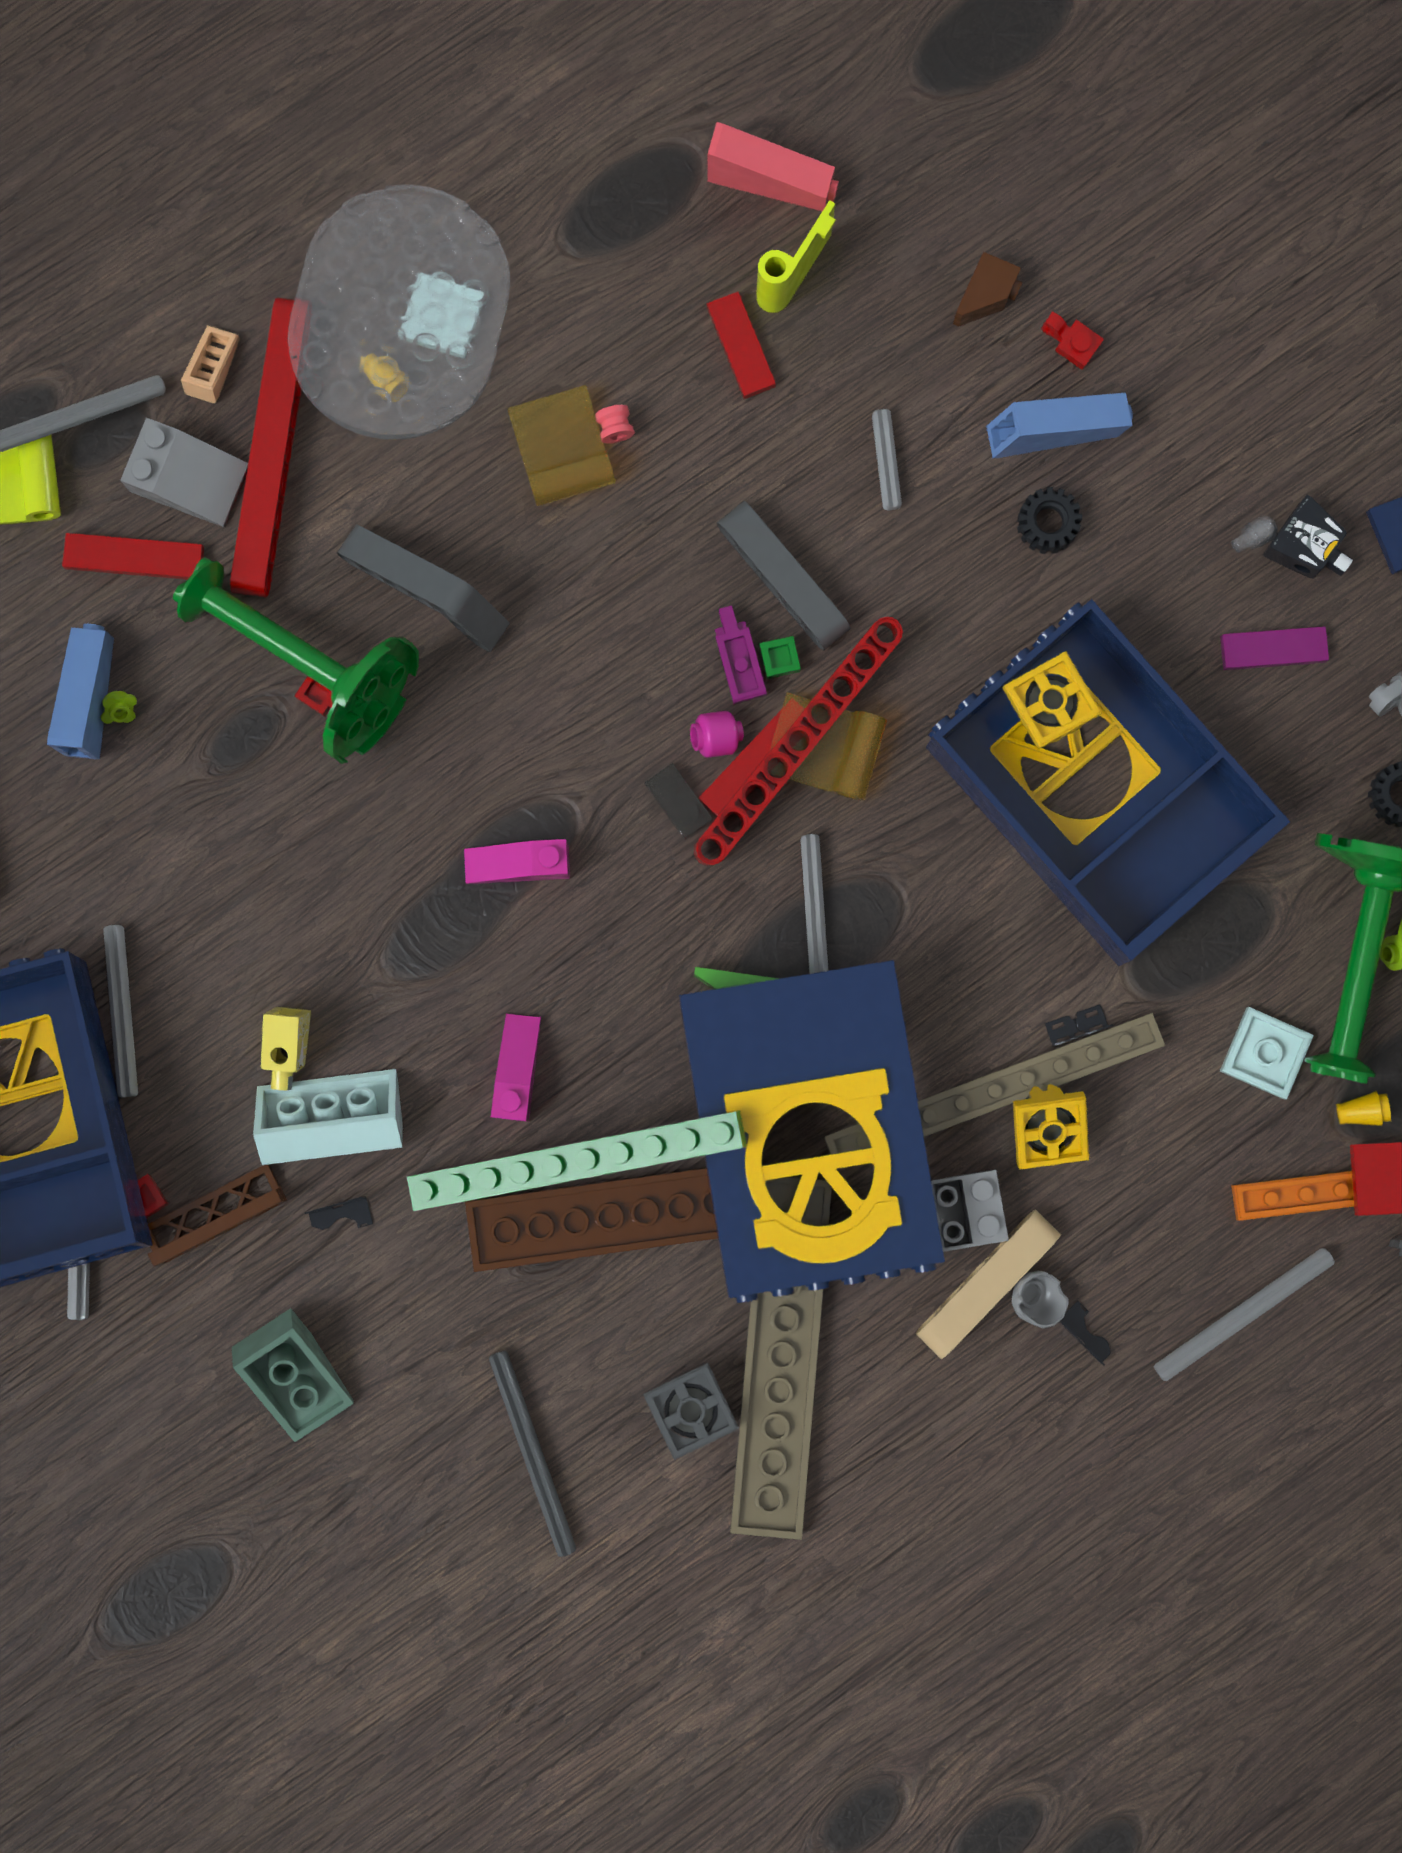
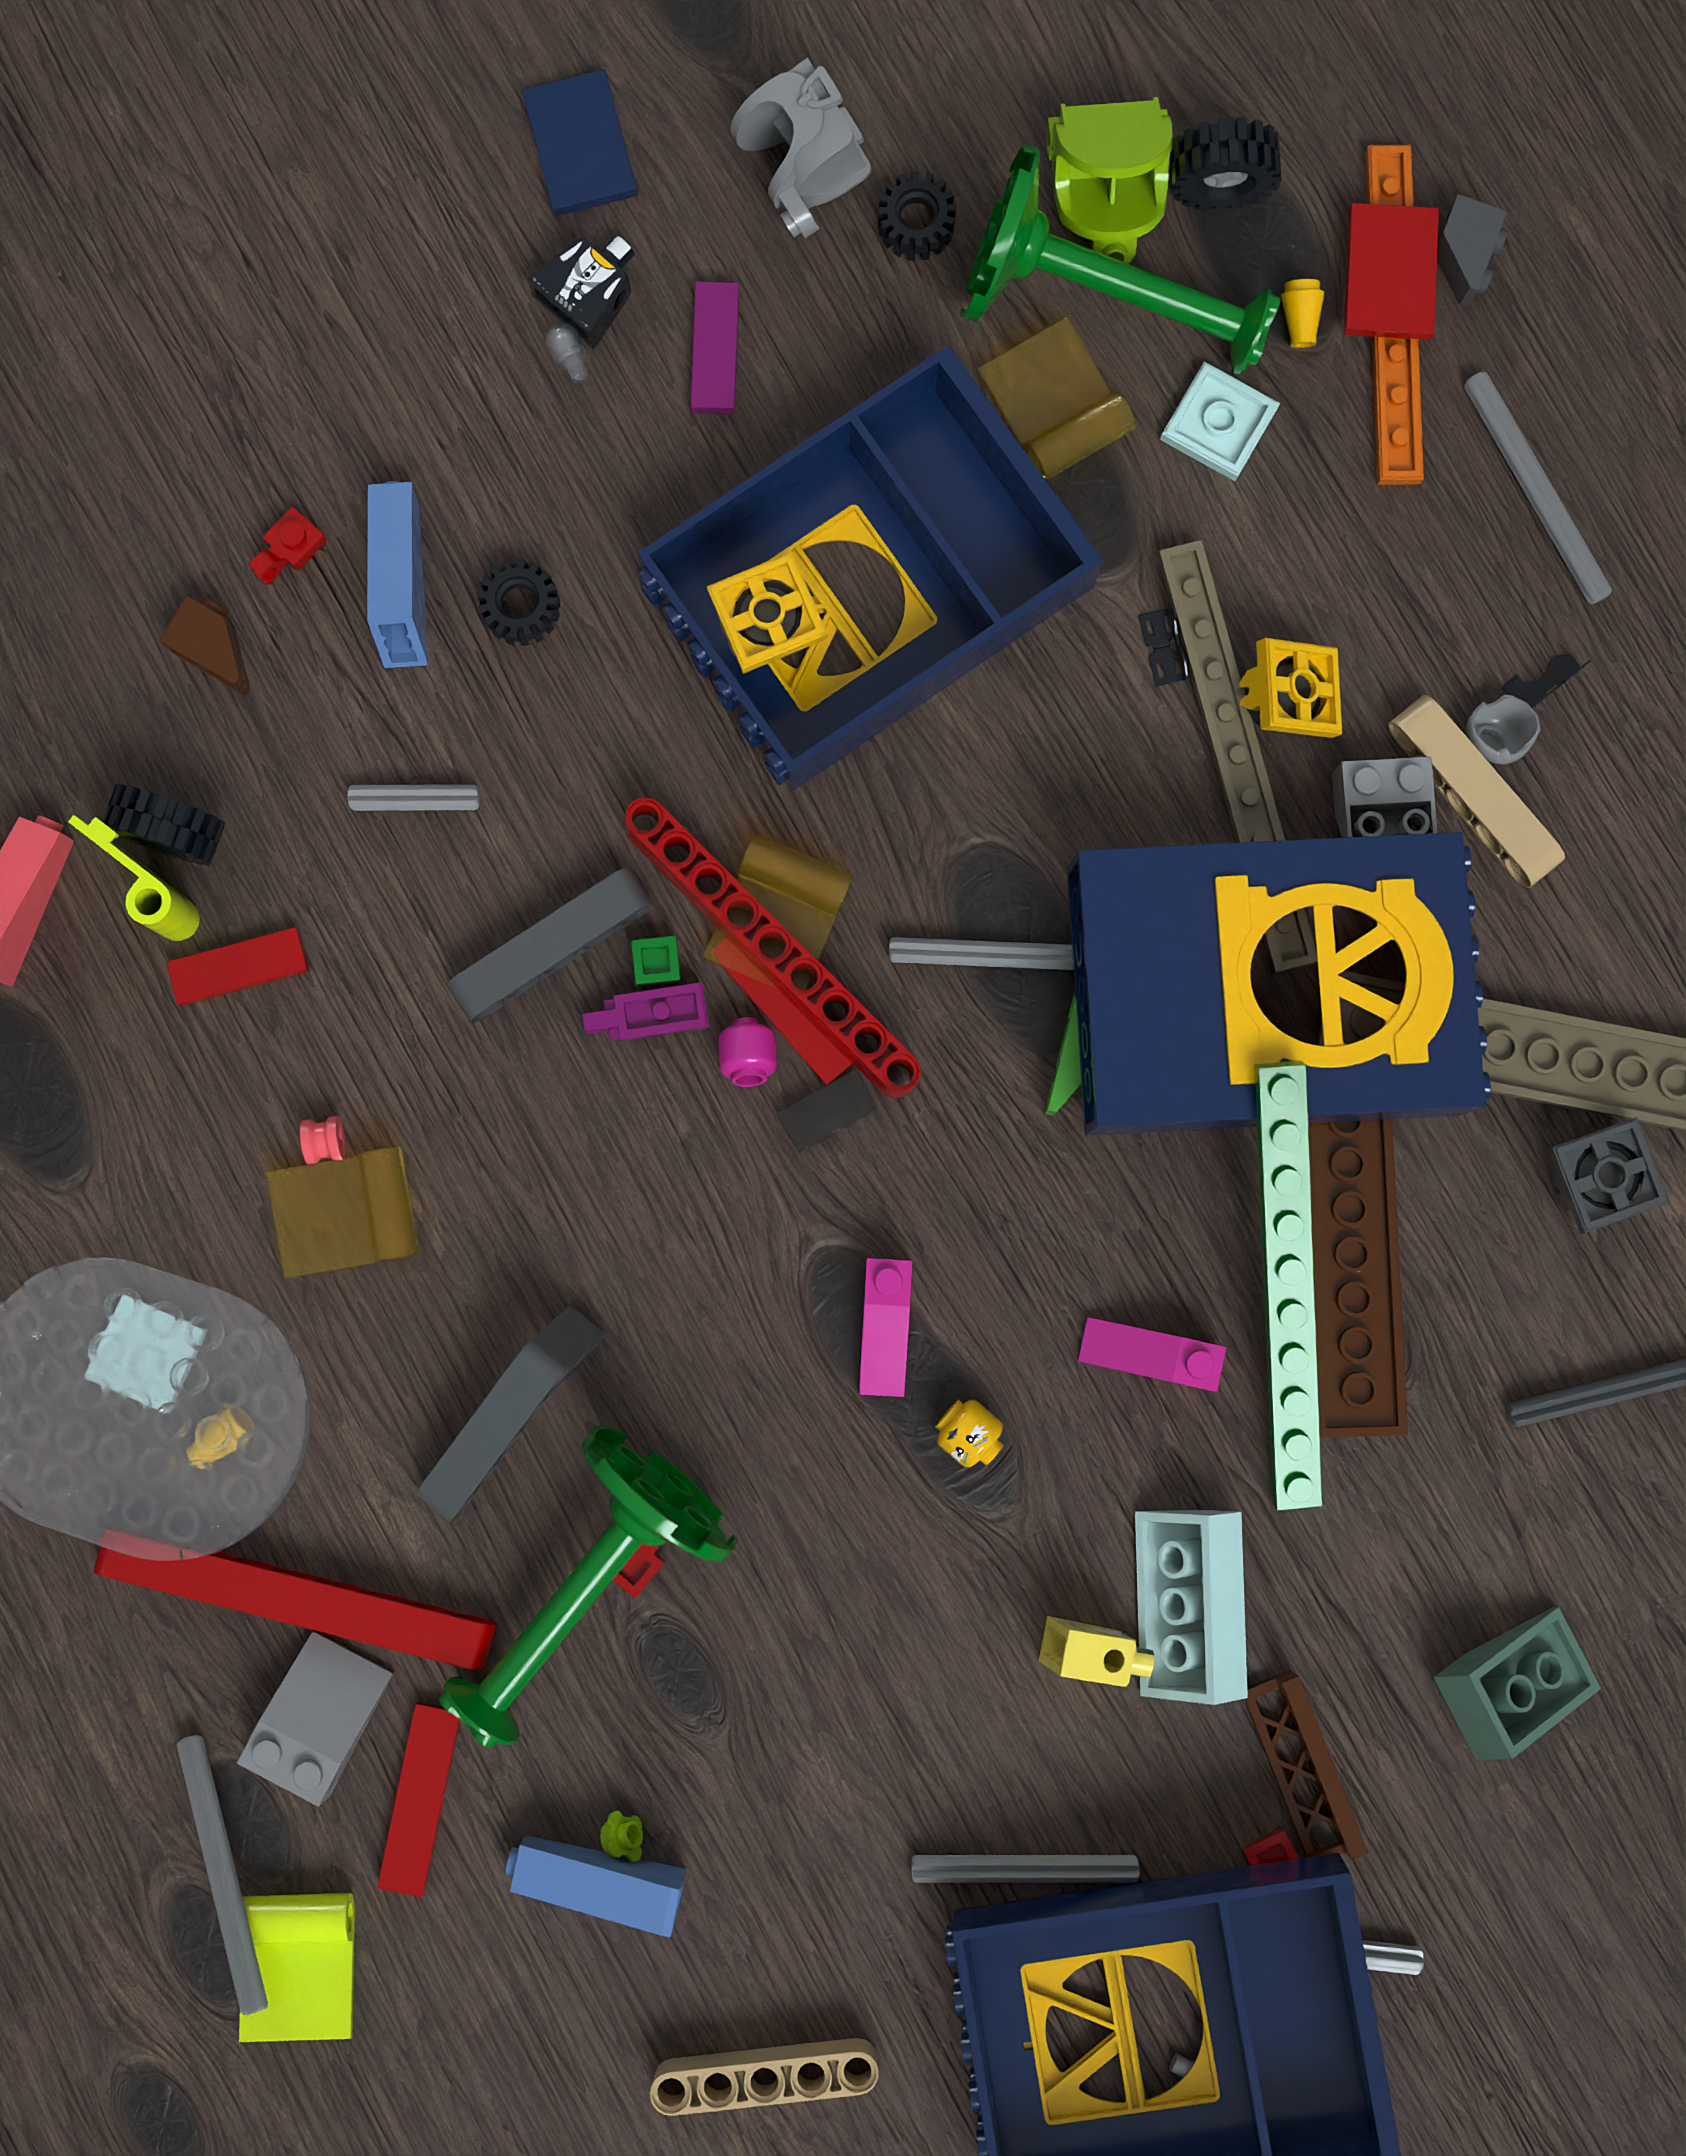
camera: 85 degrees left, 0 degrees up
(204, 384) = (195, 1684): light nougat slope -> none
(354, 1209) = (1310, 1582): black piece -> none
(441, 934) = (970, 1433): none -> yellow head
(839, 272) = (163, 824): none -> black wheel
(1266, 919) = (1056, 399): none -> clear yellow door

